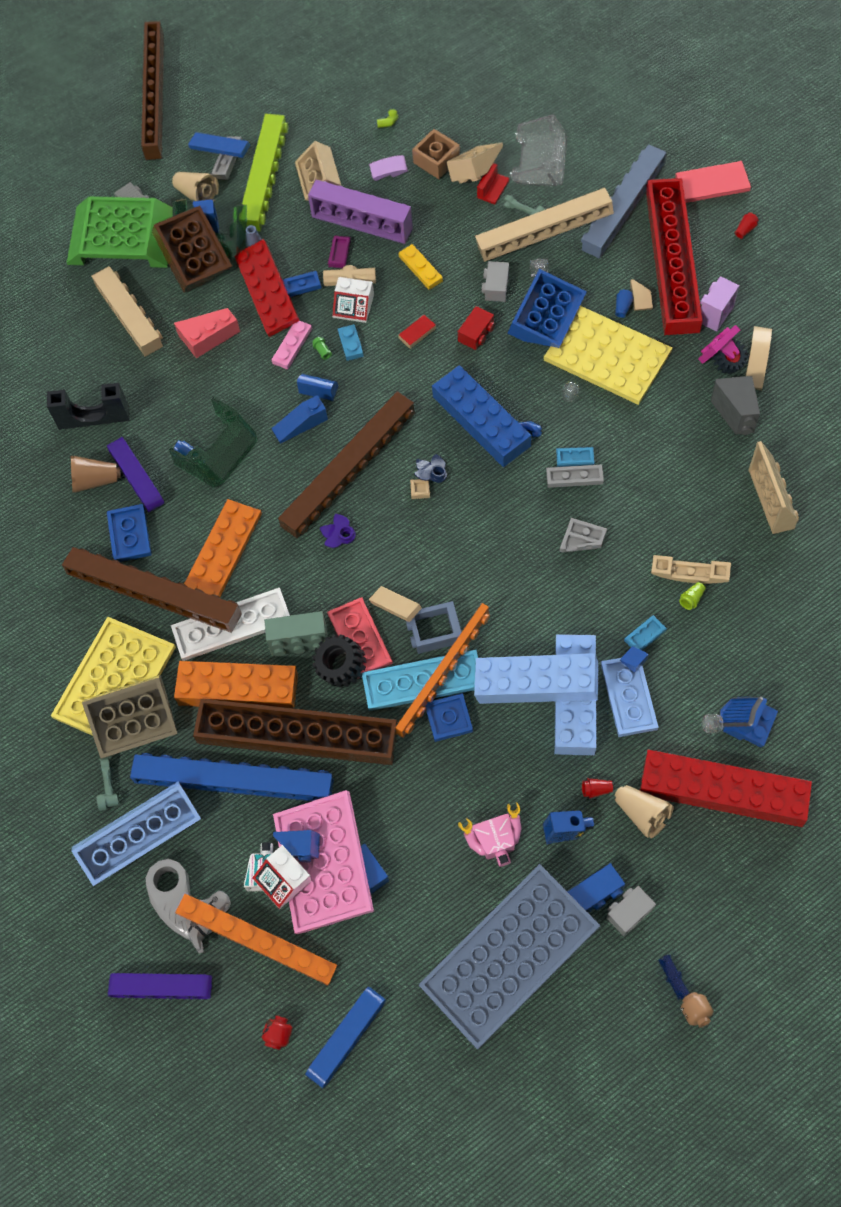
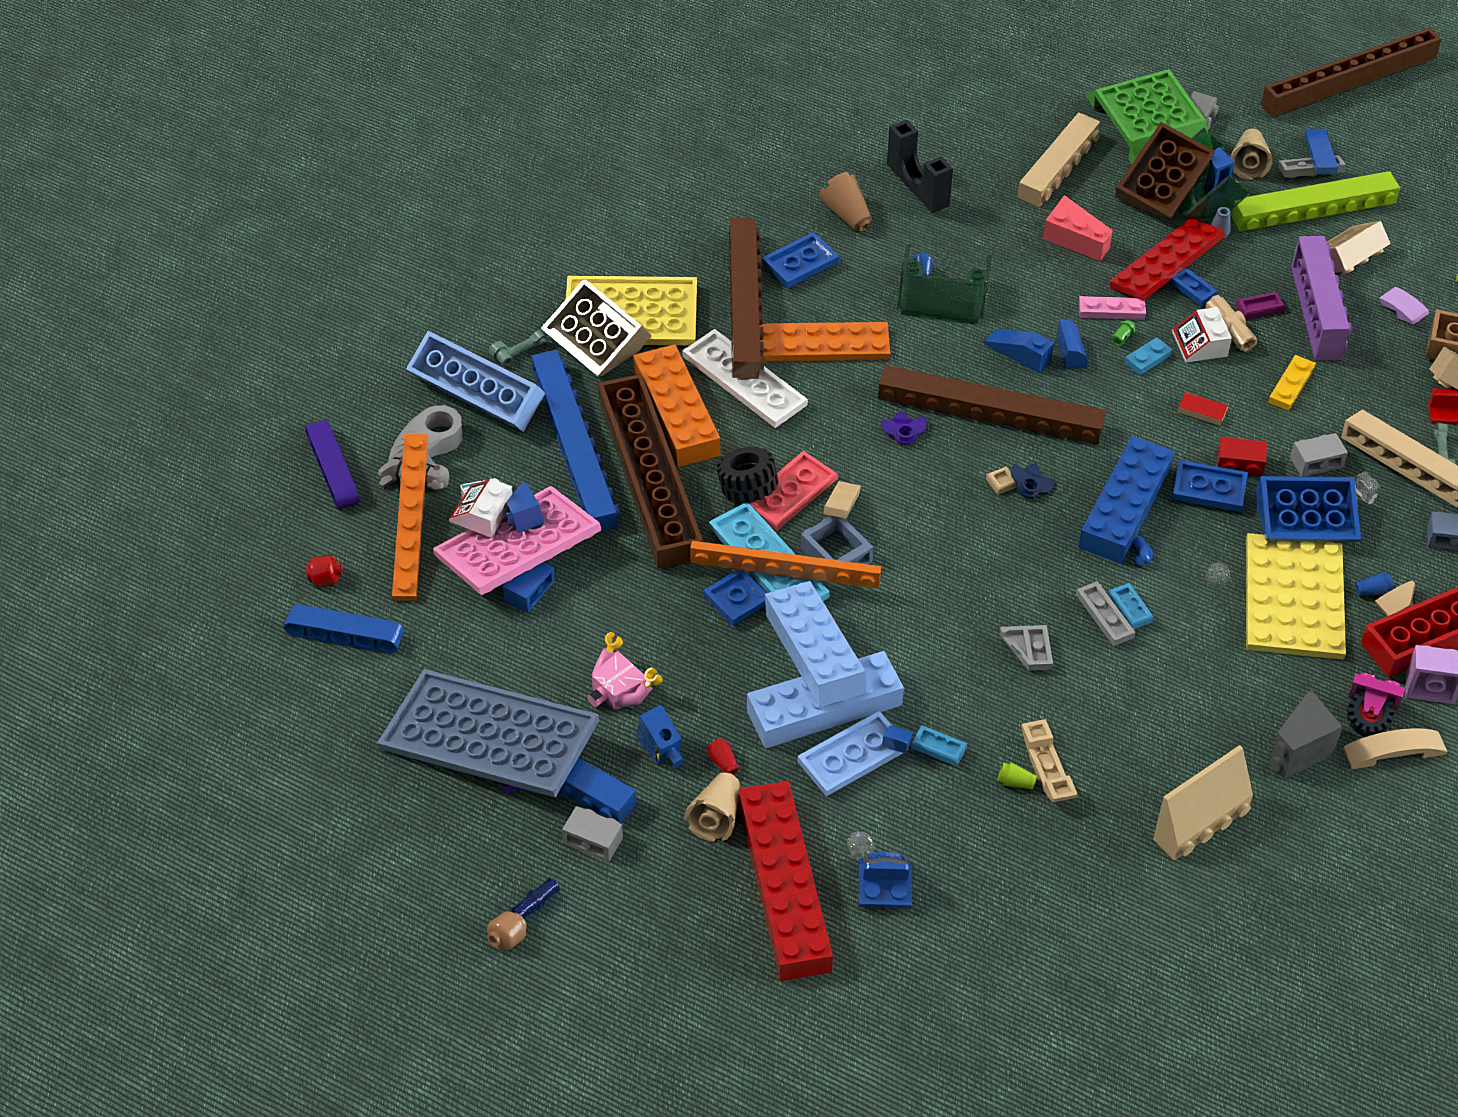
camera: 60 degrees right, 15 degrees down
(135, 474) = (870, 239): dark purple beam -> none
(295, 633) = (758, 424): sand green brick -> none
(491, 359) = (1210, 485): none -> blue plate

